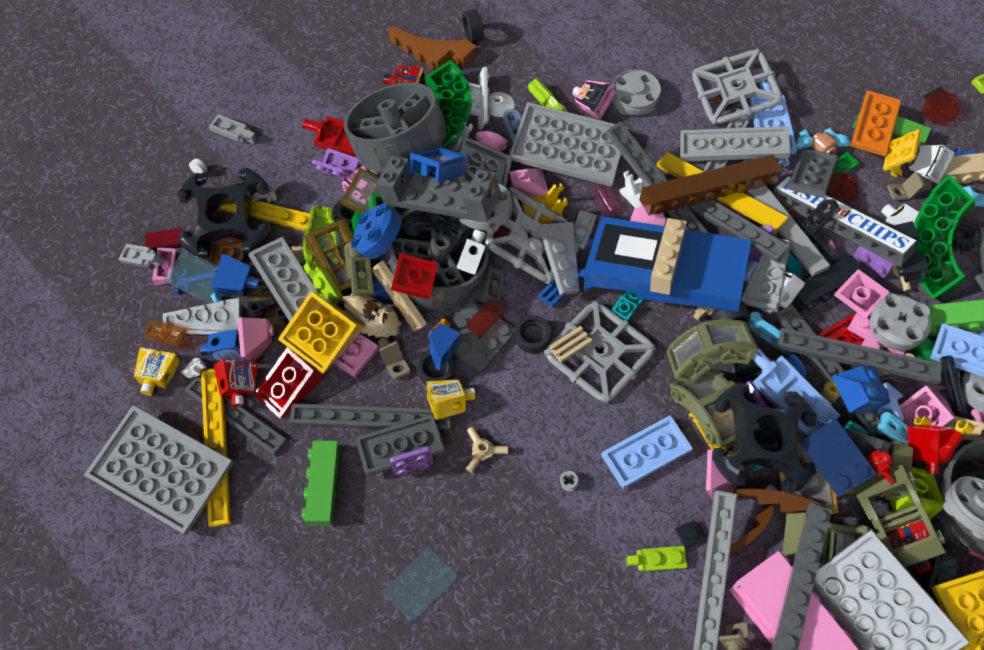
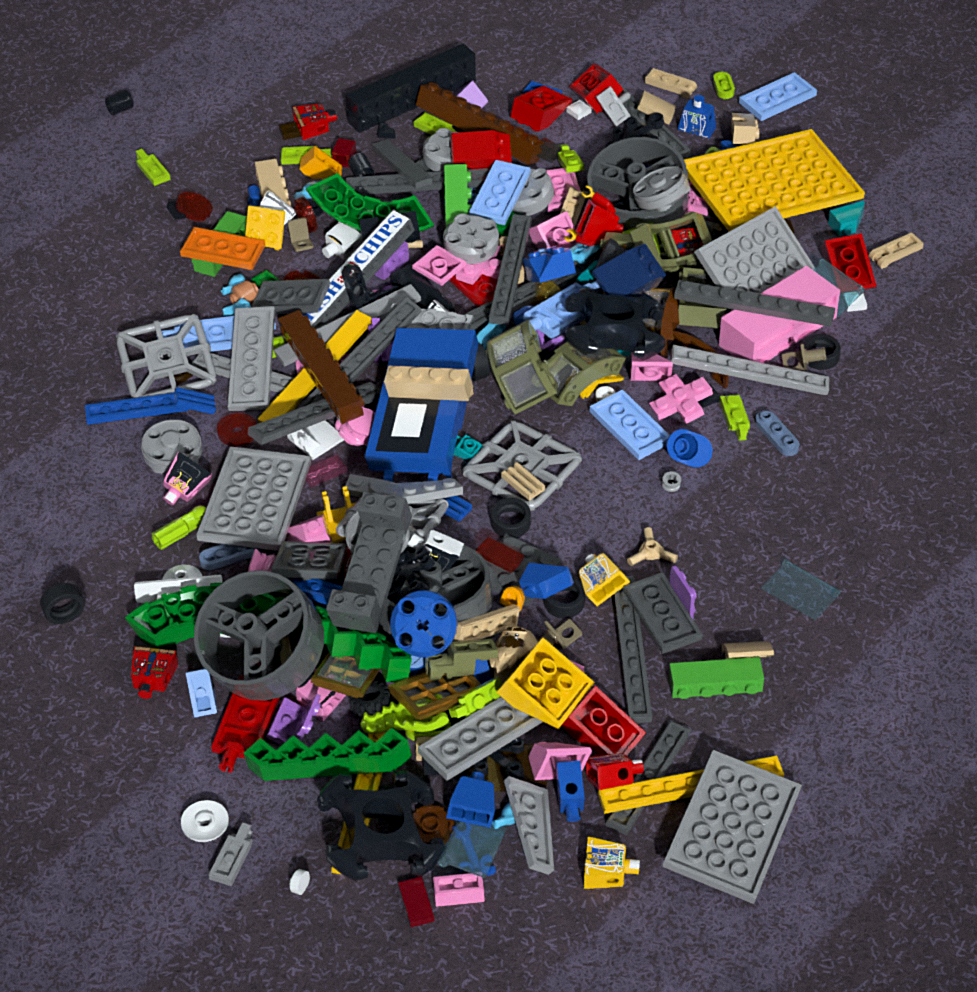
camera: 95 degrees left, 15 degrees down
(139, 256) = (450, 913): light grey hinge -> none
(164, 334) = (557, 863): clear orange slope -> none
(193, 368) = (598, 822): white plate -> none
(262, 107) = (202, 813): none -> white dish
(294, 183) = (328, 757): none -> green brick
(343, 513) = (747, 649): none -> tan slope
(414, 276) = (481, 582): red plate -> none
(434, 52) = (101, 648): dark orange arch -> none
(447, 164) = (325, 566): blue window -> none
(606, 498) = (689, 448): none -> blue piece
(623, 603) = (777, 433): none -> sand blue plate
(660, 131) = (233, 421): none -> clear red tile
(680, 505) = (681, 398): none -> bright pink plate
(683, 72) = (131, 408): none -> blue plate
(693, 107) = (194, 400): none -> blue tile
(693, 435) = (604, 392): none -> white tile
(881, 464) = (629, 242): red piece -> none
(925, 189) = (305, 210): none -> clear red tile
(952, 377) = (525, 209): black pin -> none

